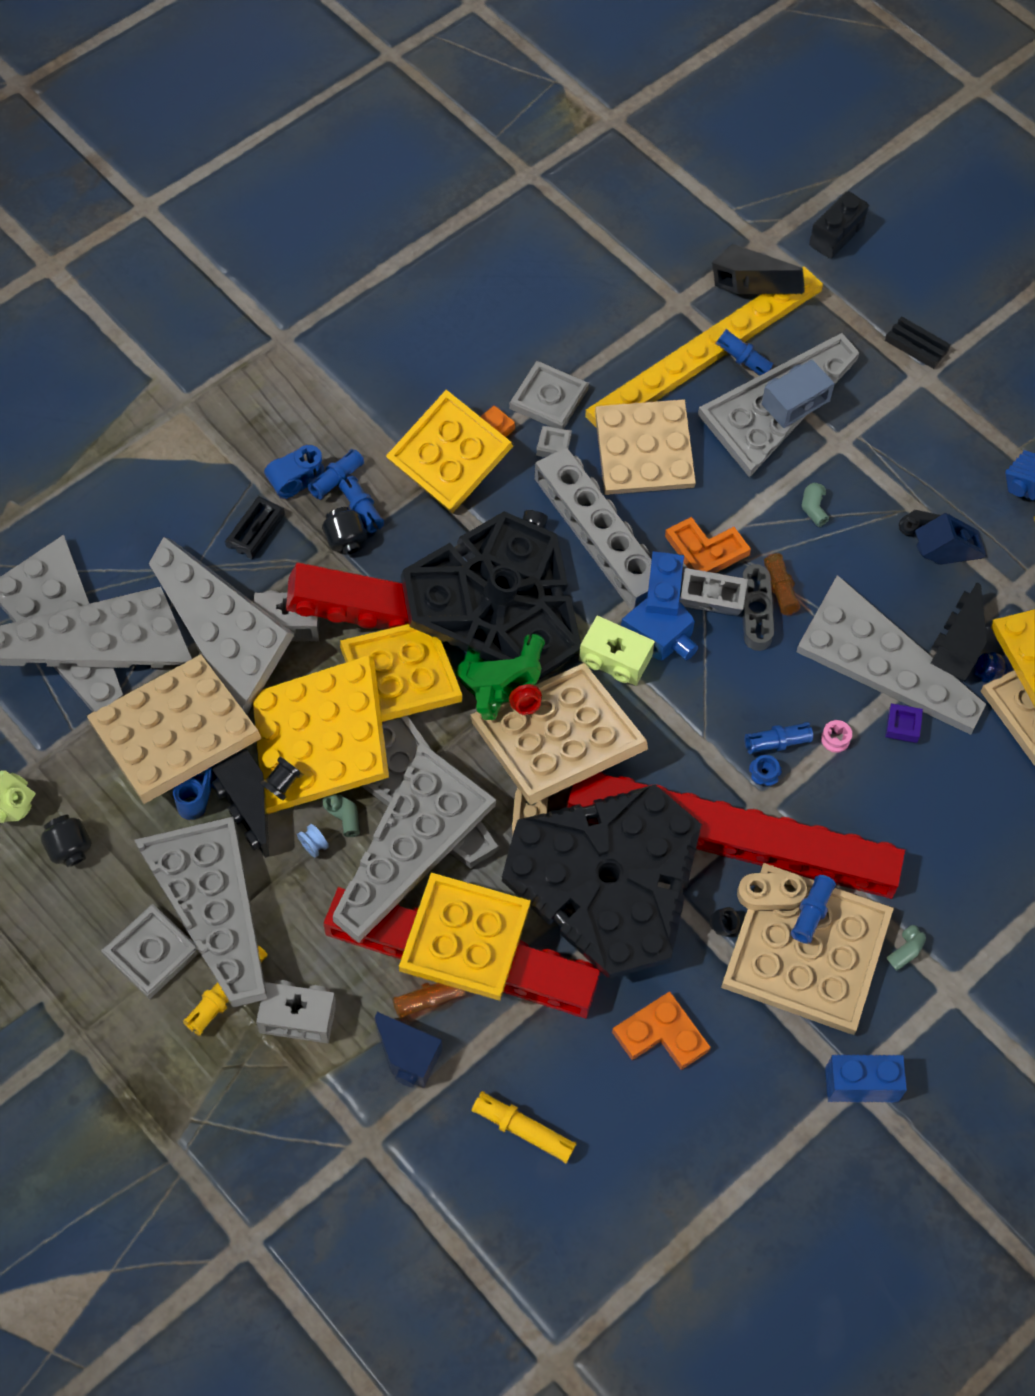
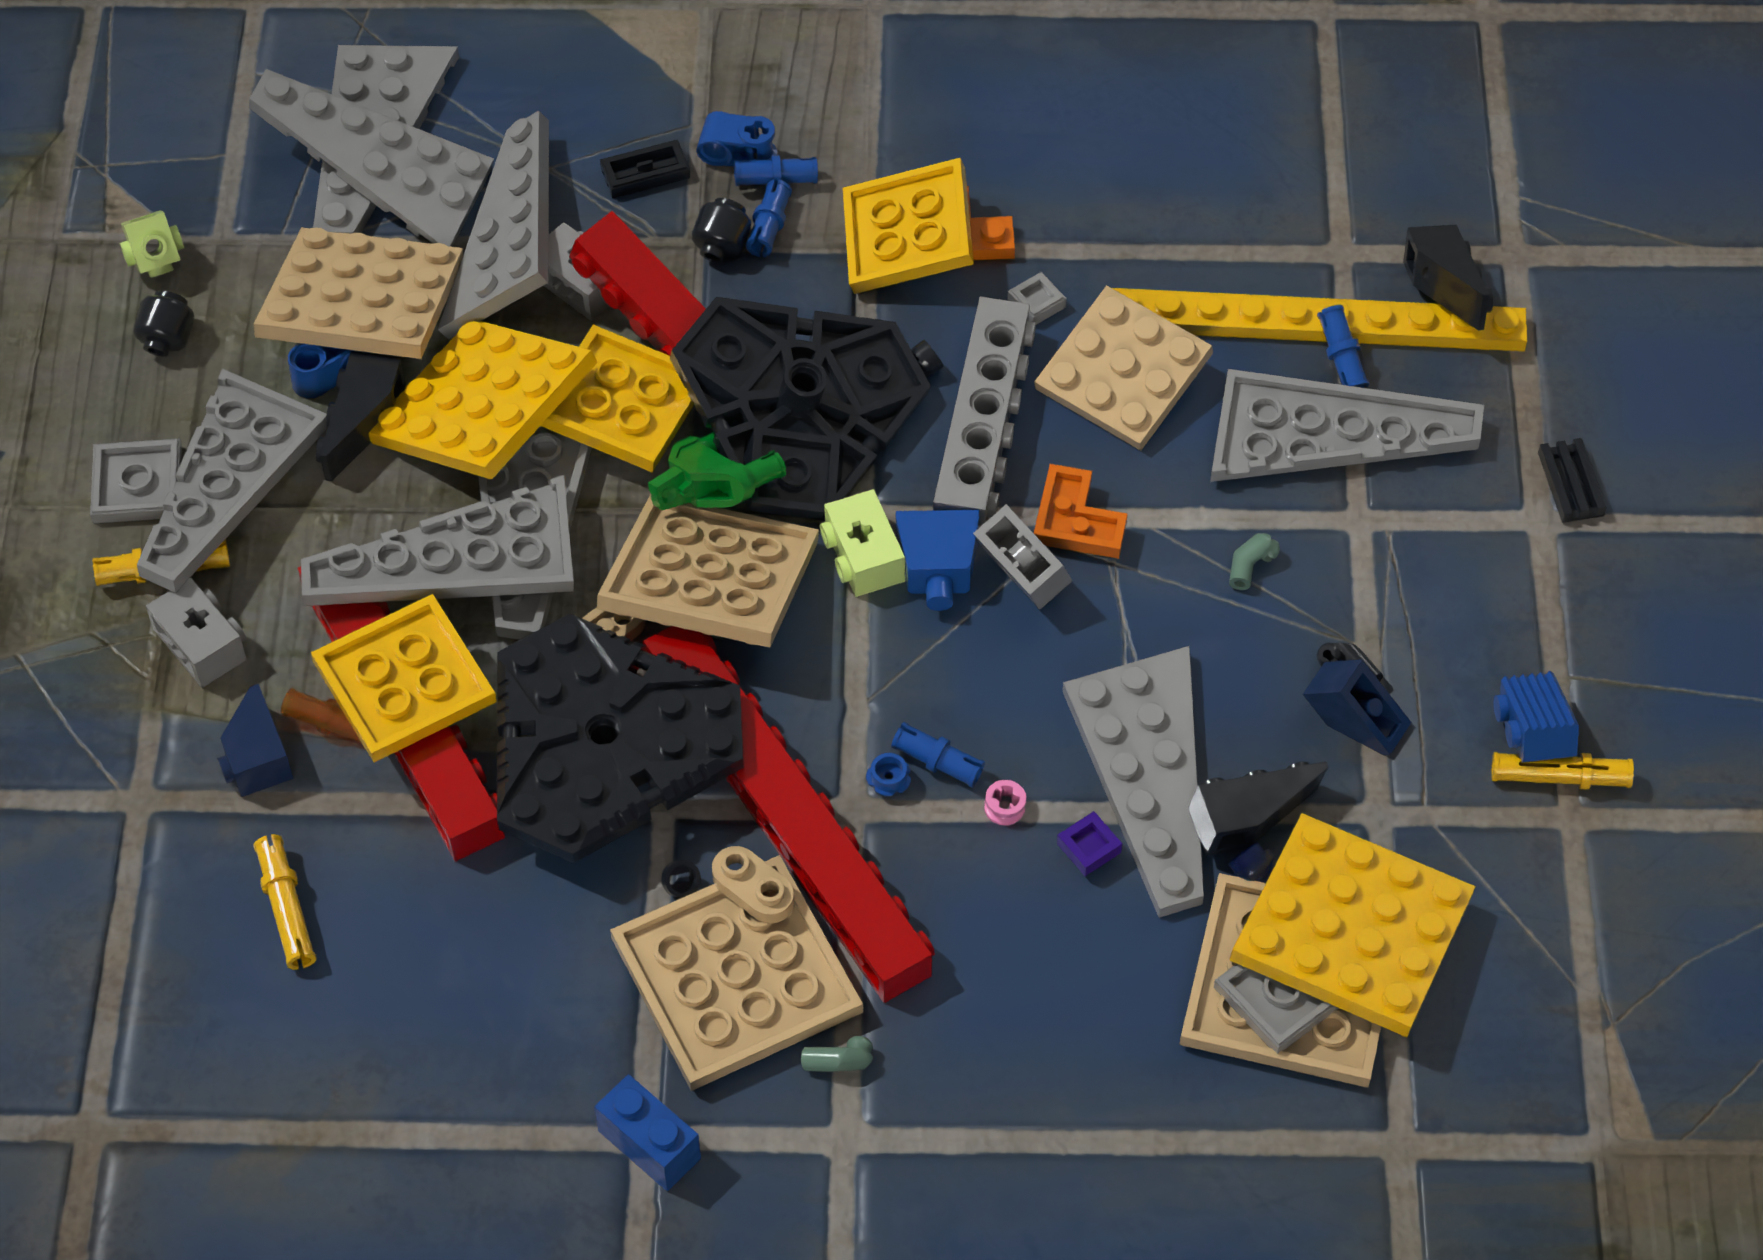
camera: 45 degrees right, 5 degrees down
(281, 778) = (396, 406): black bush -> none
(312, 840) = (377, 494): light blue bush -> none
(345, 811) = (438, 489): sand green arm -> none
(525, 699) = (707, 511): red plate -> none
(549, 395) = (1085, 249): light grey tile -> none
(664, 583) = (973, 506): blue plate -> none
(664, 1023) = (518, 924): orange plate -> none
(750, 618) = (1062, 632): dark grey beam -> none
(782, 584) = (1117, 610): clear orange pin -> none
(797, 393) = (1346, 426): sand blue brick -> none
(813, 909) = (771, 931): blue pin -> none
(838, 224) = (1616, 290): black brick -> none

